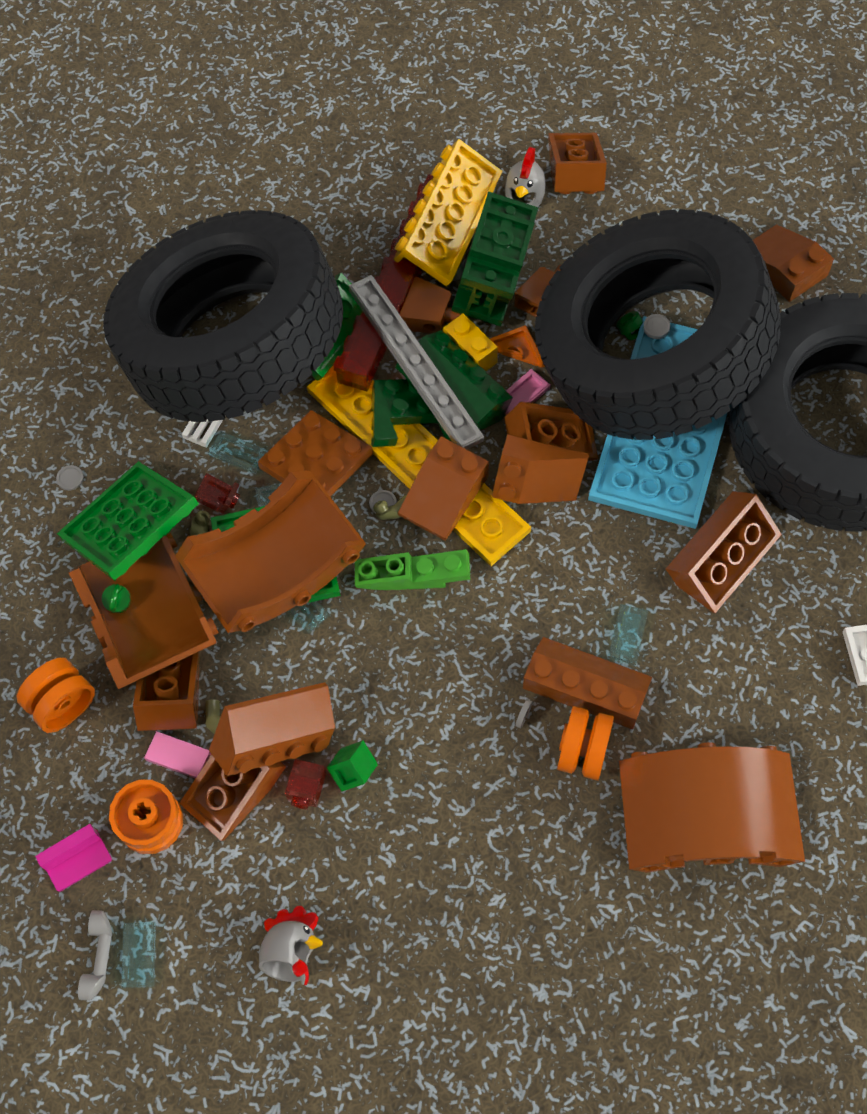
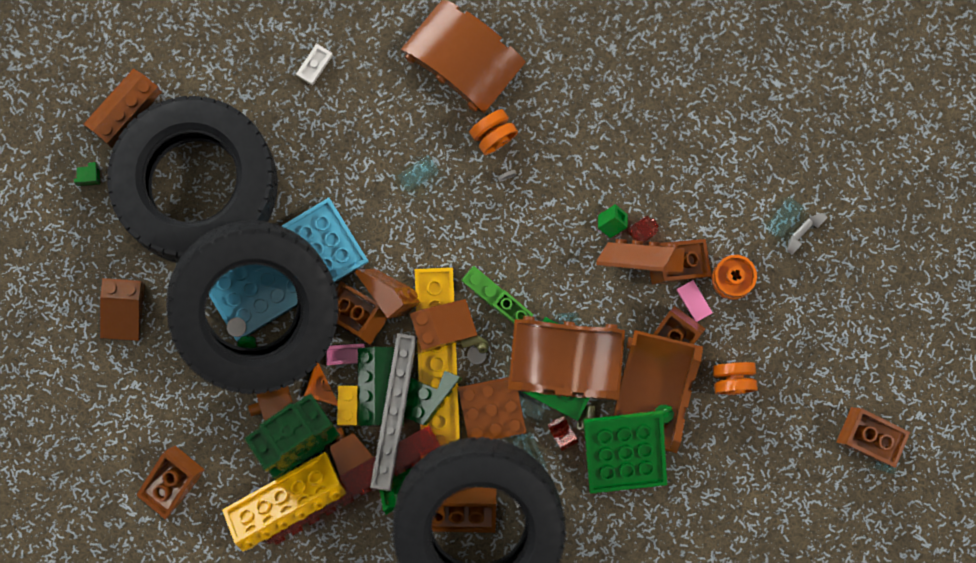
camera: 145 degrees left, 15 degrees up
(70, 477) = (634, 519): light grey piece -> none
(74, 857) = (783, 289): dark pink panel -> none
(212, 714) = (663, 303): olive arm -> none
(288, 945) = (710, 160): light grey piece -> none
(526, 178) = (217, 487): light grey piece -> none
(586, 682) = (460, 165): dark orange slope -> none
(724, 550) = (328, 173): dark orange slope -> none

